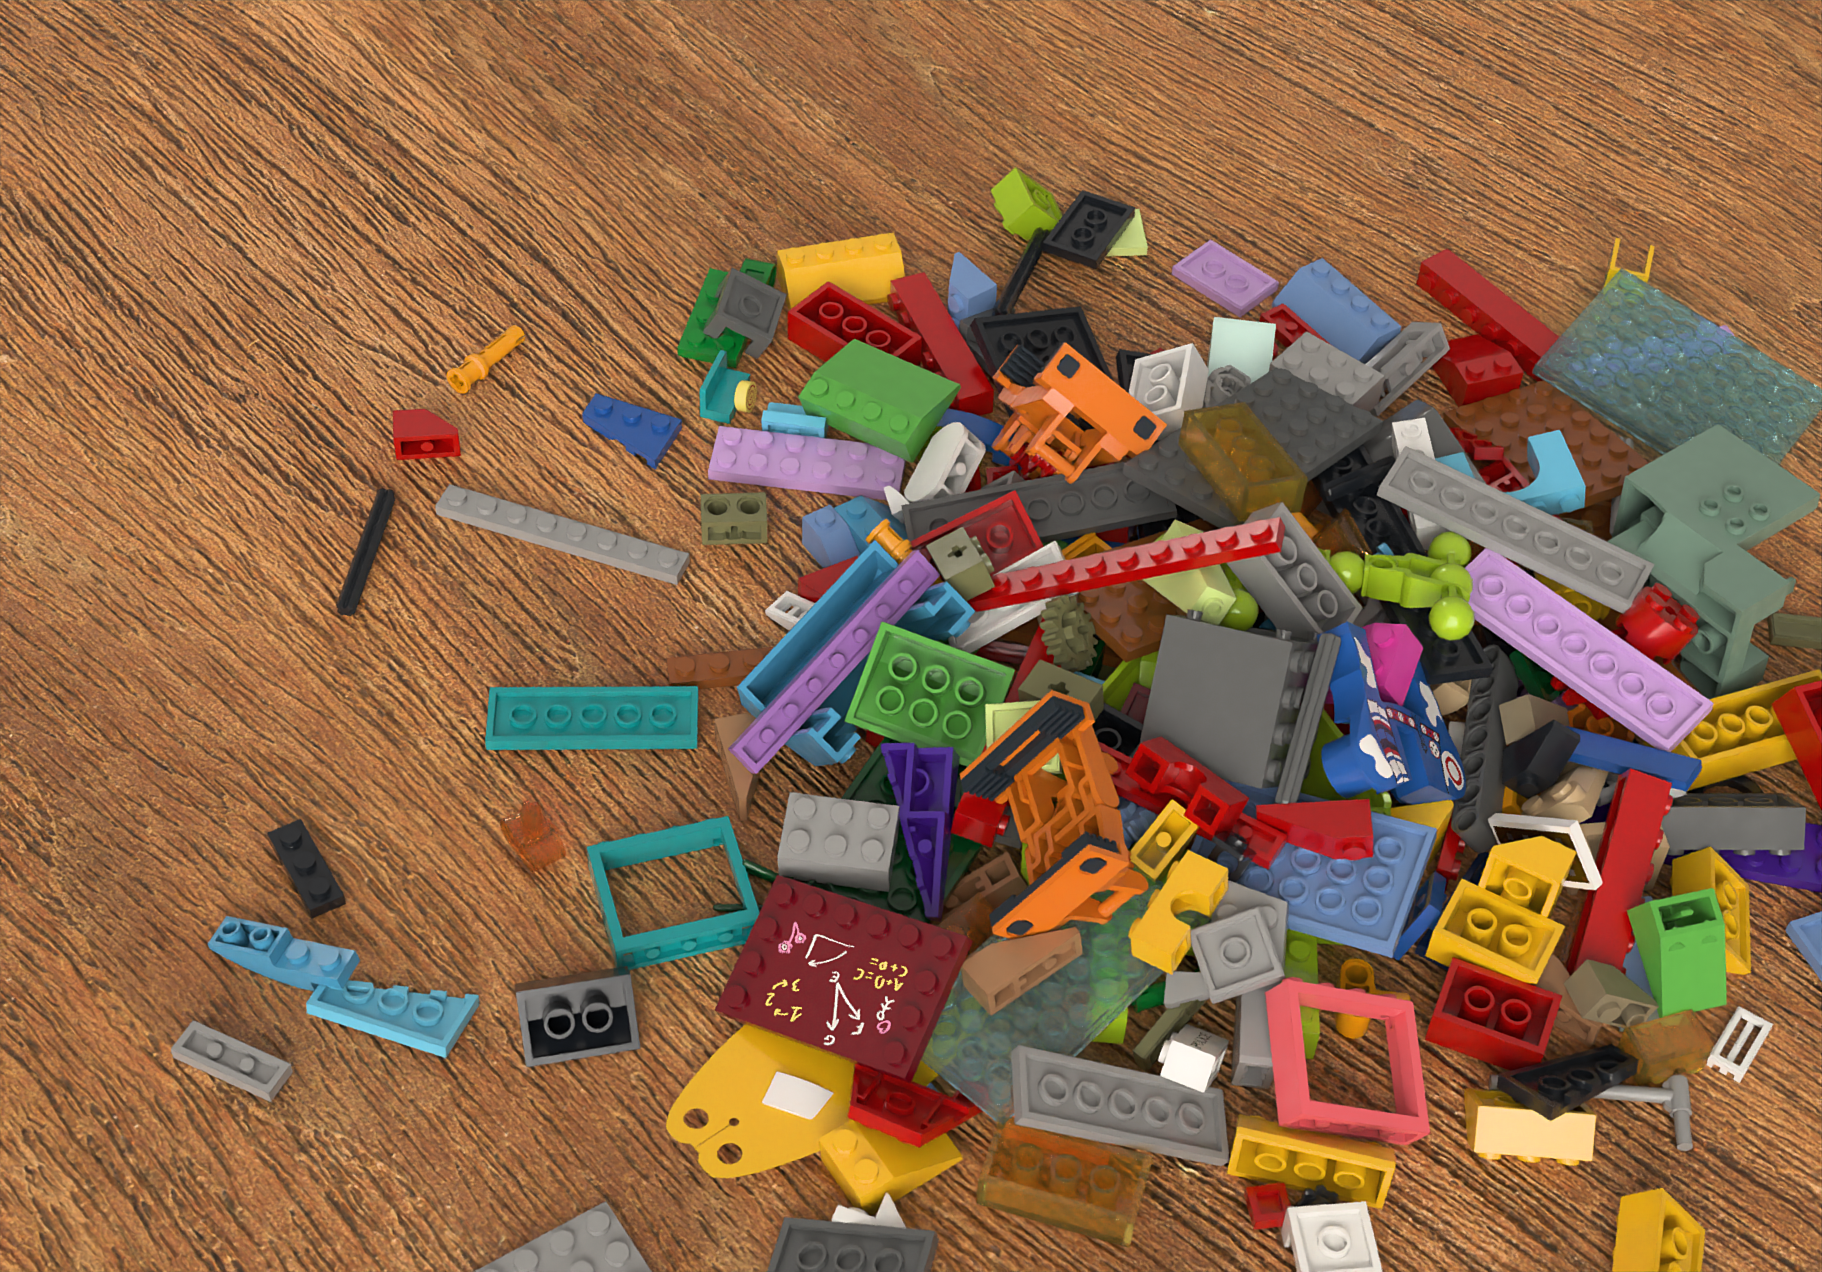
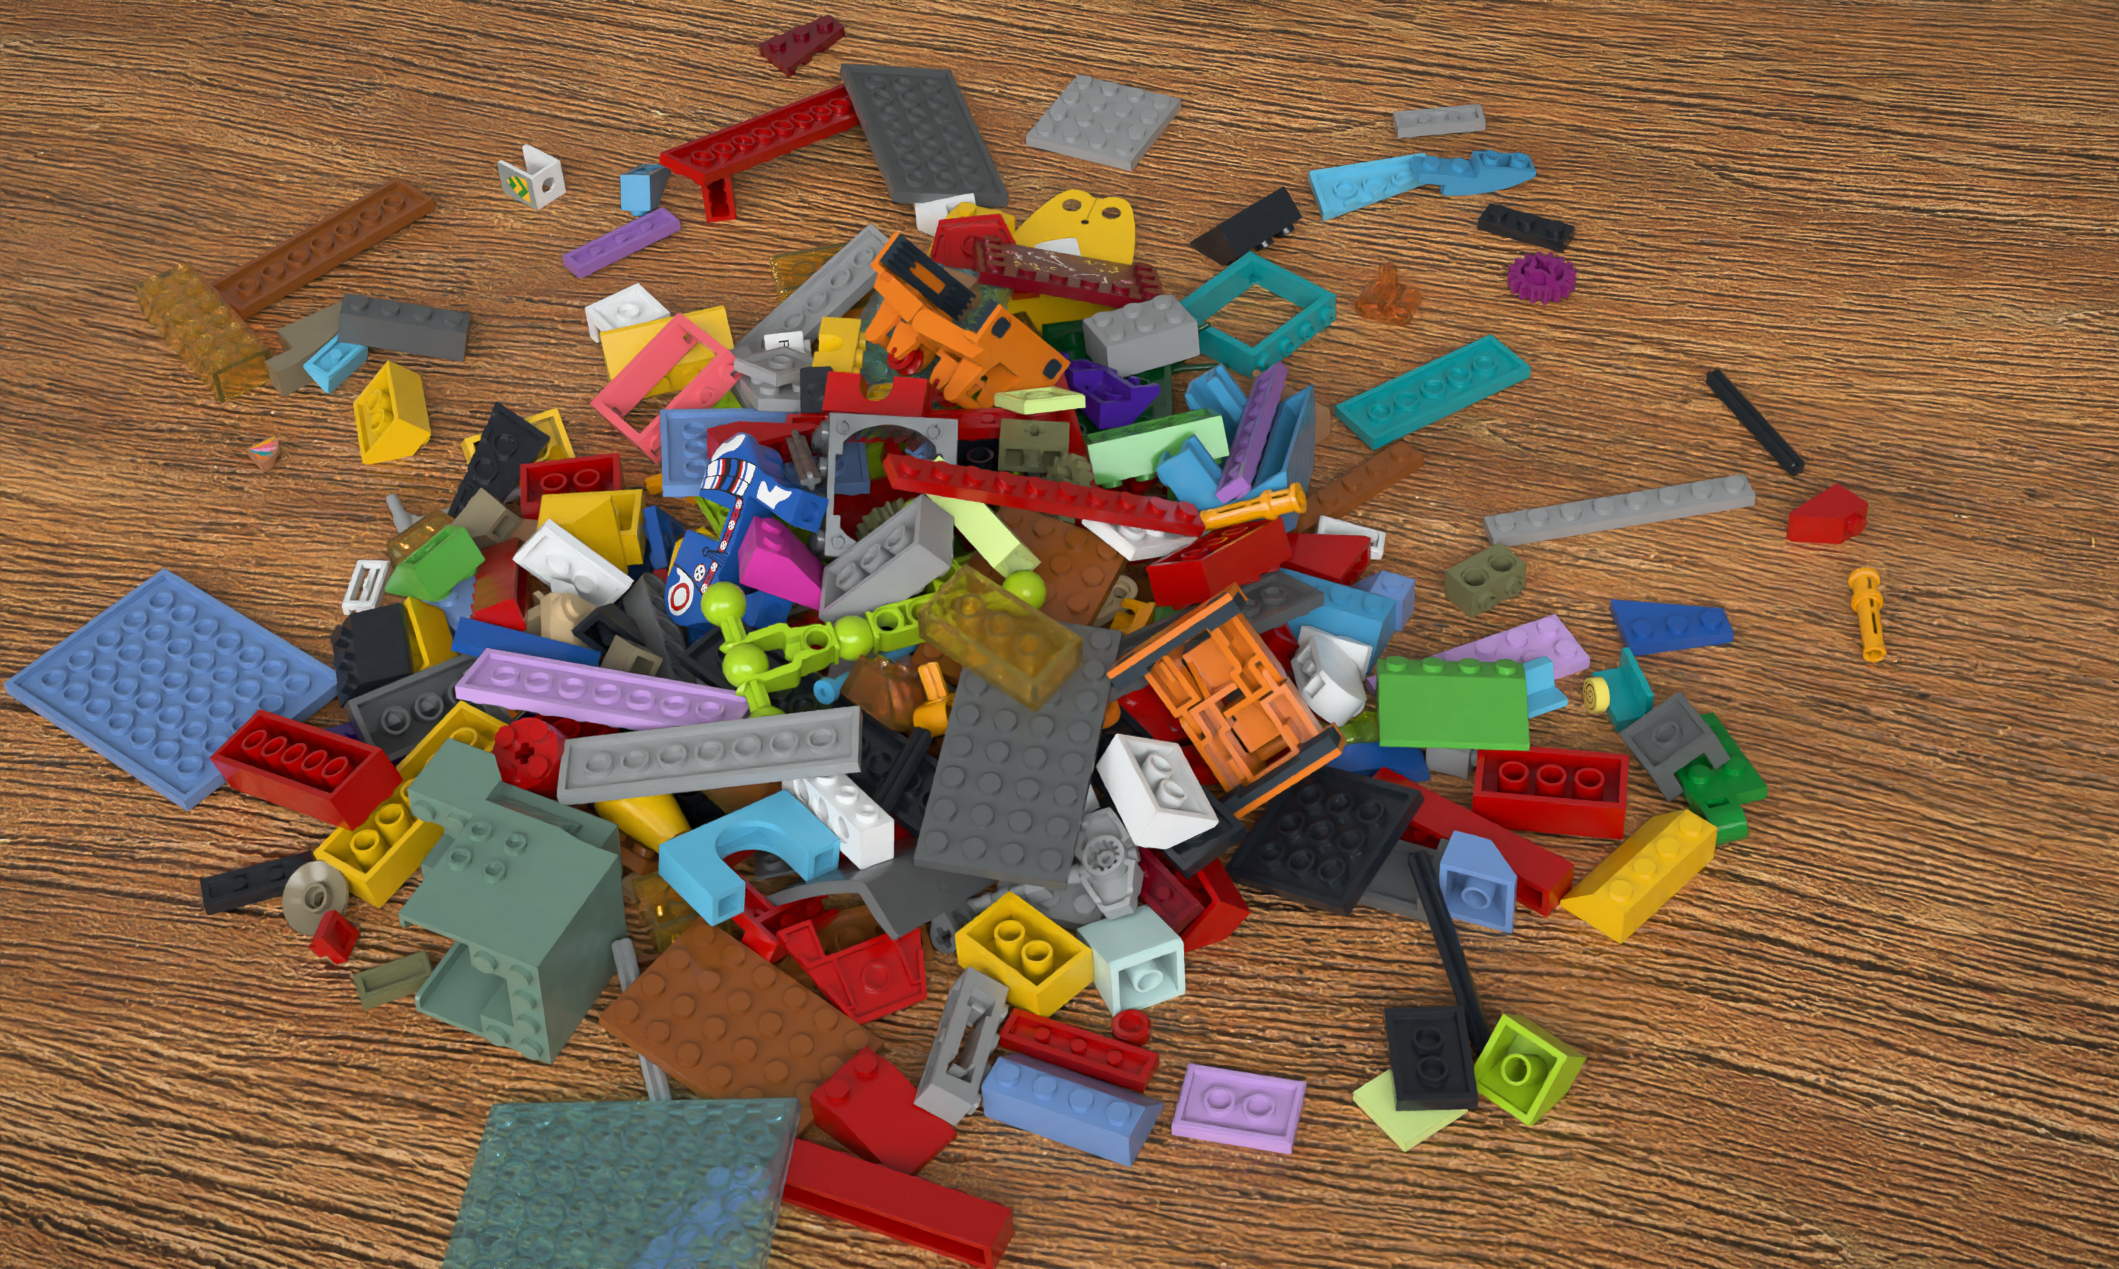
camera: 155 degrees right, 5 degrees down
(372, 783) = (1541, 278): none -> magenta gear
(962, 563) = (1201, 500): olive brick -> none
(1332, 371) = (1012, 920): light grey brick -> none
(1761, 907) = (371, 651): none -> black slope

